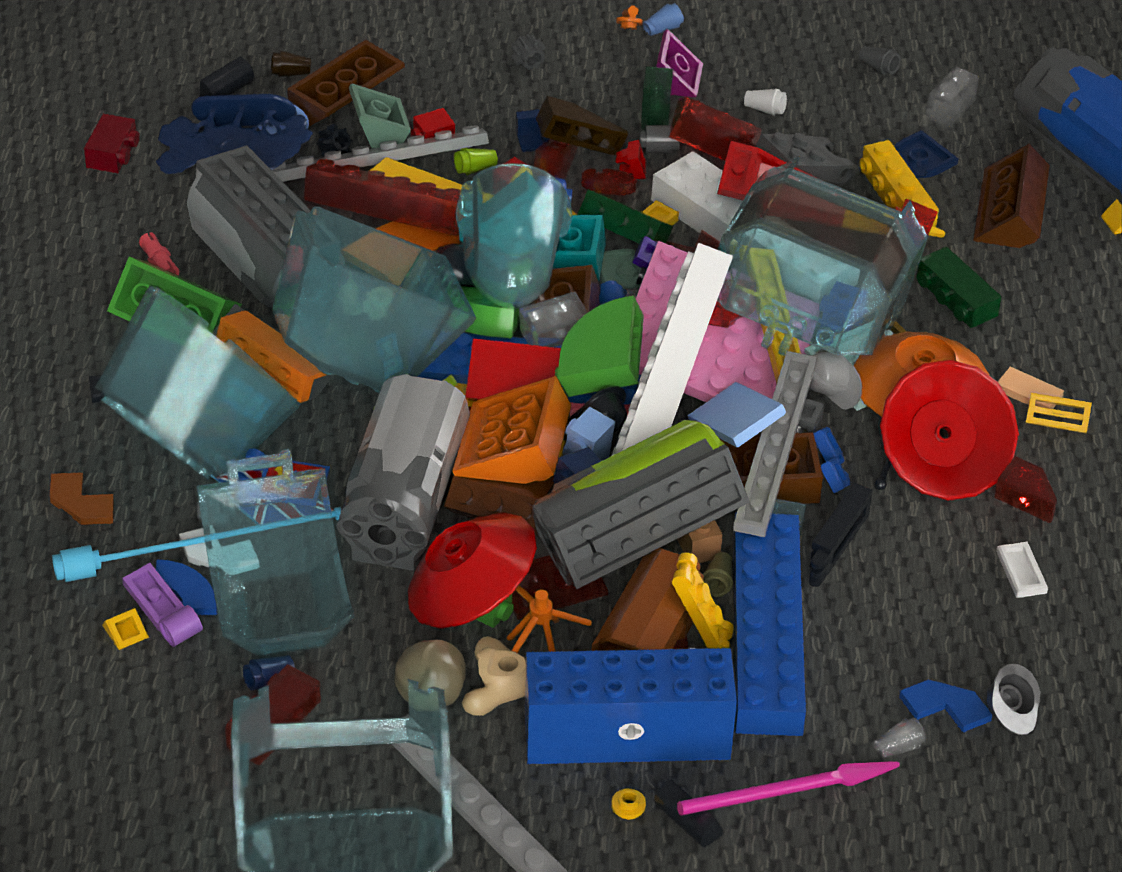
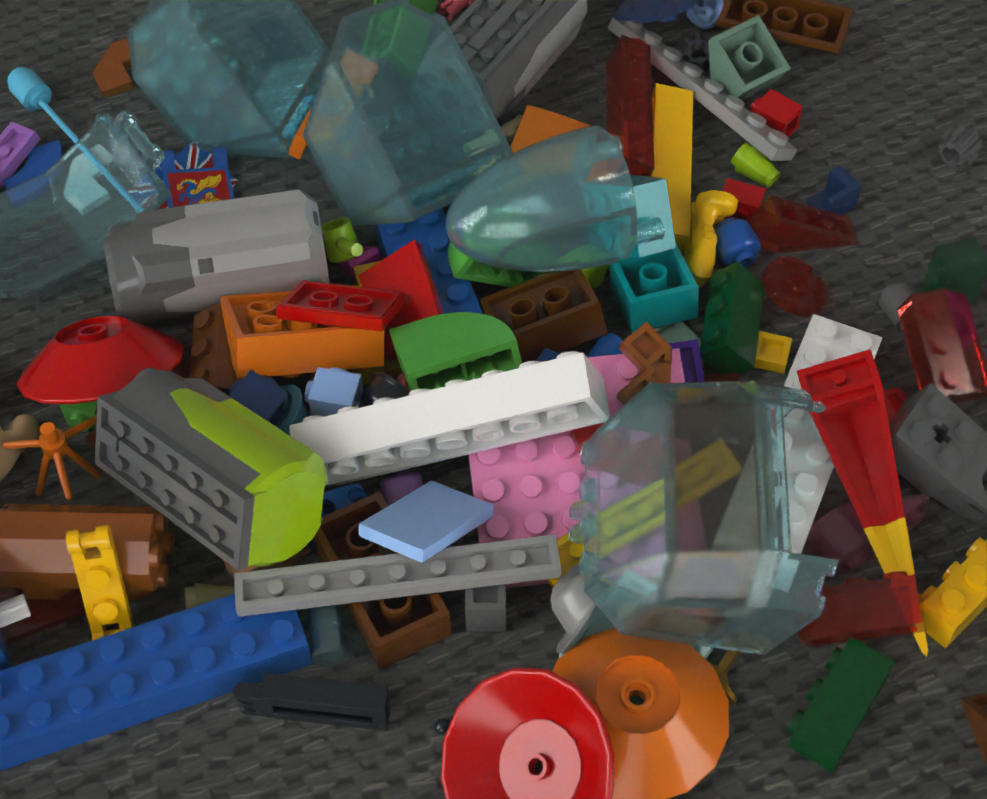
camera: 70 degrees right, 10 degrees up
(516, 396) = (341, 305): none -> red tile
(550, 320) = (485, 292): clear brick -> none
(579, 127) = (850, 219): dark brown slope -> none
(634, 160) = (849, 297): red tile -> none
(661, 252) = (650, 356): none -> dark orange tile
(833, 455) = (459, 652): blue tile -> none

